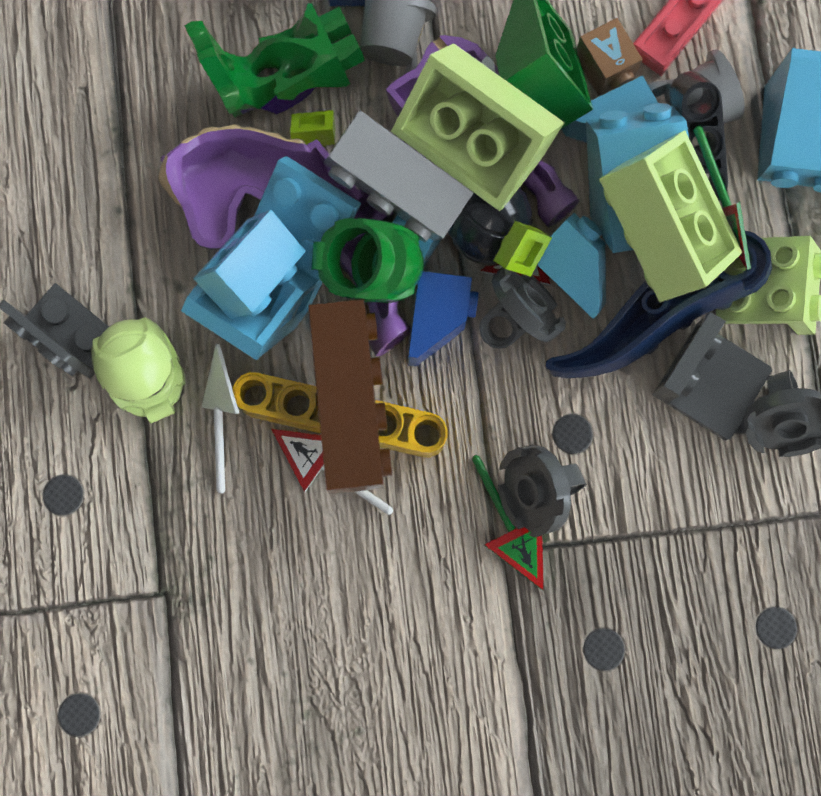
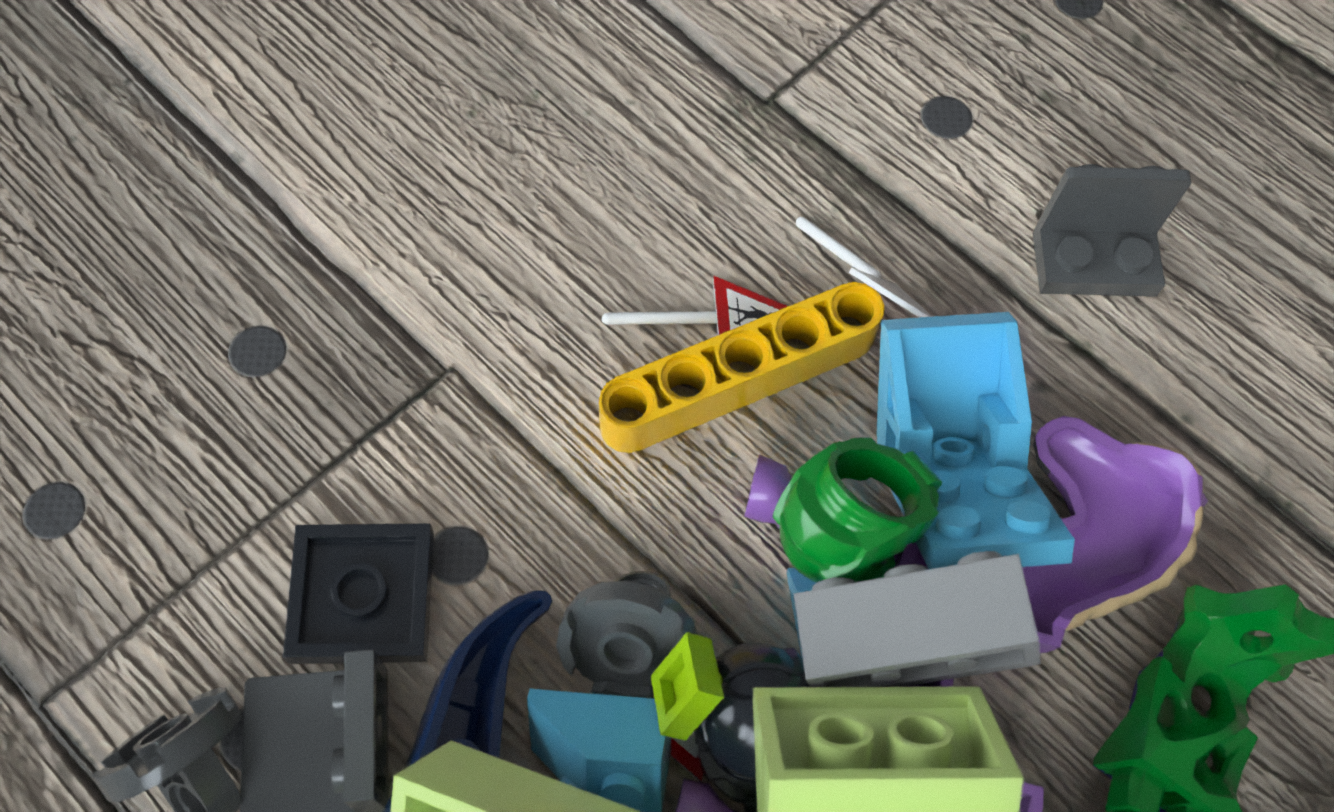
camera: 140 degrees right, 15 degrees down
(134, 363) = (1008, 245): yellowish green helmet -> none
(251, 266) = (982, 396): medium azure brick -> none
(314, 126) = (1079, 674): lime plate -> none
(347, 396) = (747, 348): reddish brown brick -> none
(439, 313) = (730, 561): blue slope -> none
(515, 547) = (430, 383): piece -> none
(538, 489) = (449, 434): dark grey tile -> none
(642, 443) = (359, 592): none -> black plate

